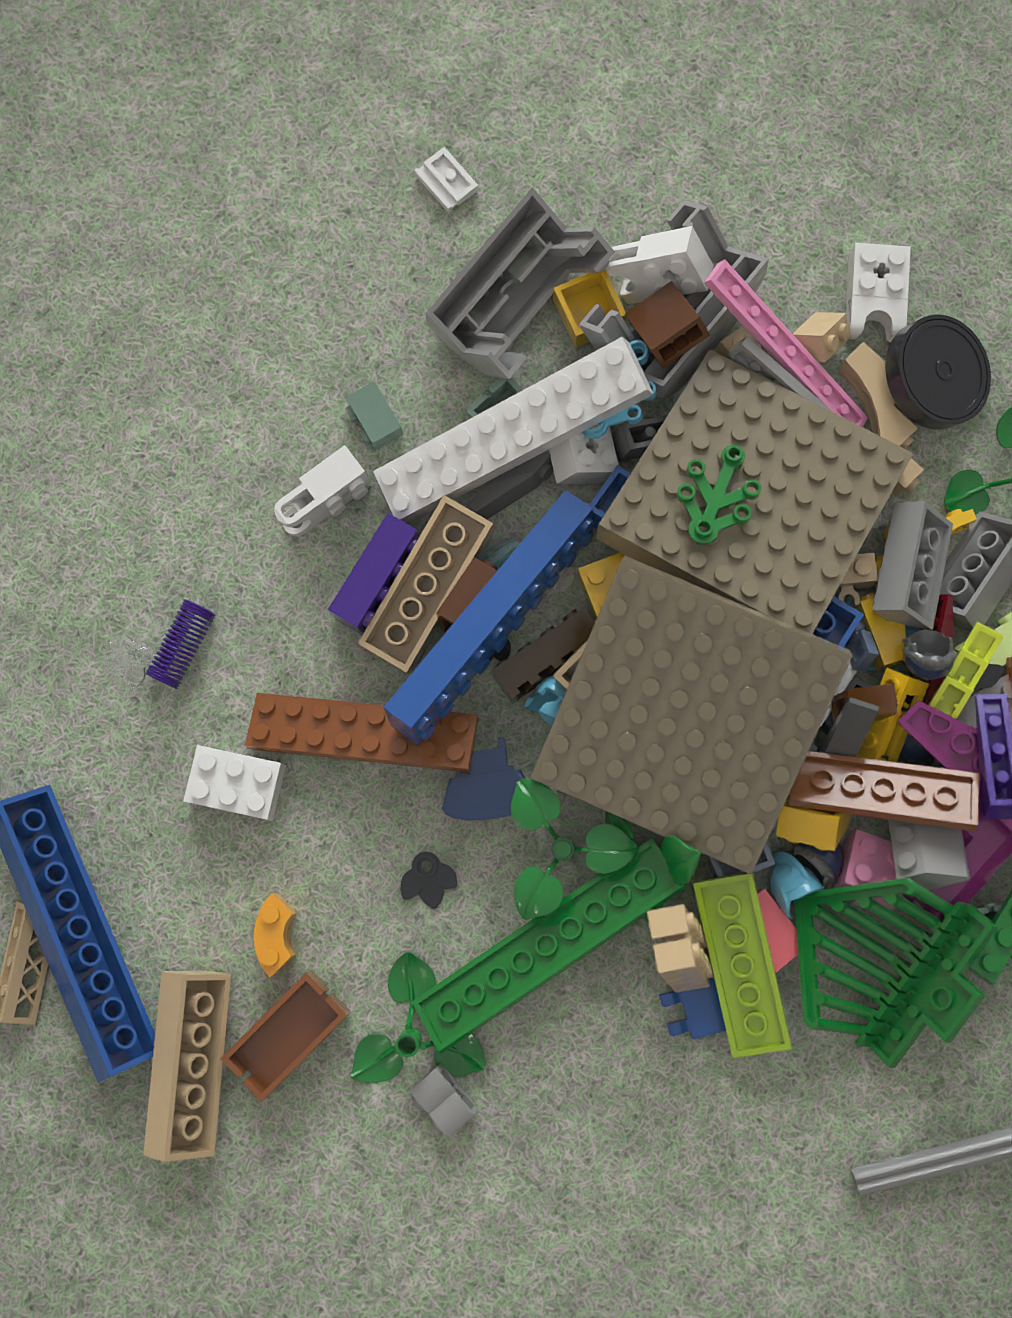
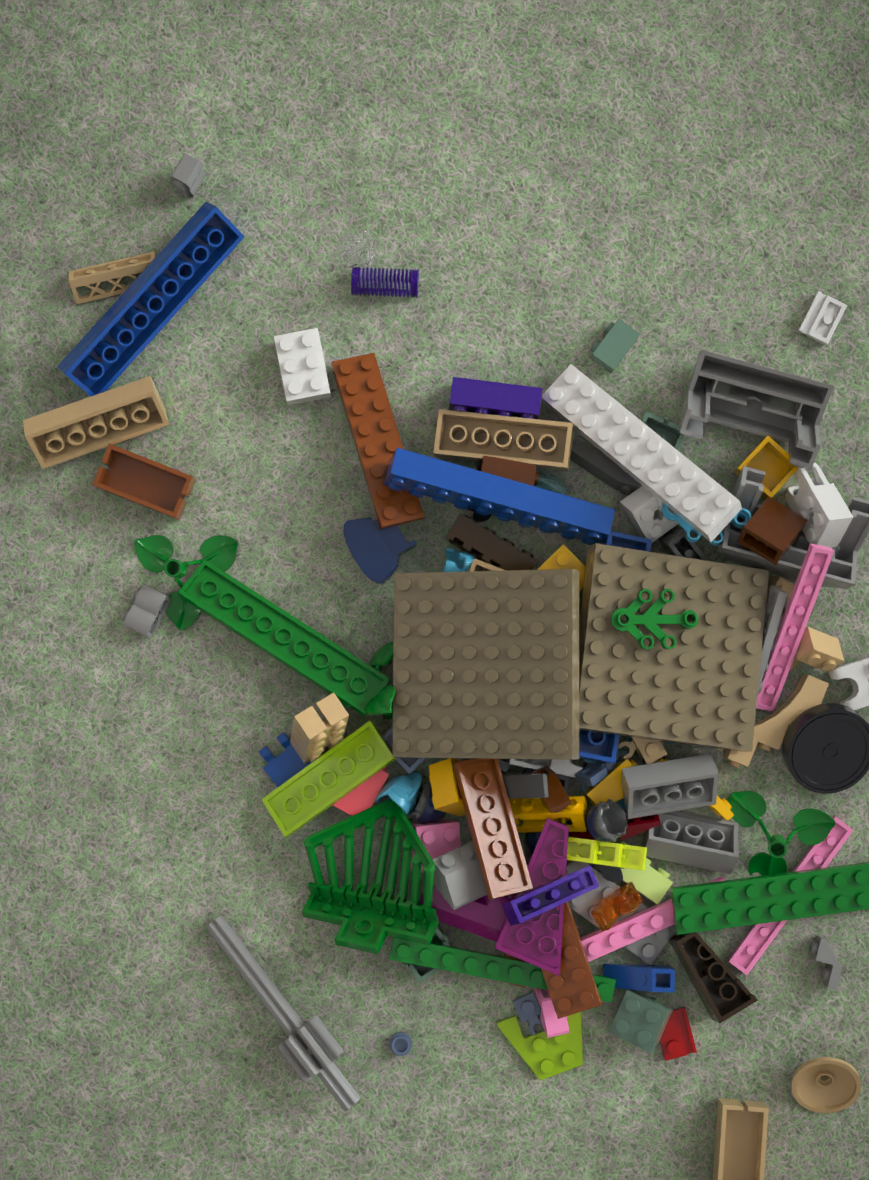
camera: 55 degrees right, 5 degrees up
(272, 936) = (207, 441): light orange brick -> none
(323, 492) = (539, 334): white brick -> none
(428, 884) = (291, 536): black plate -> none
(606, 849) = (368, 649): green plant -> none

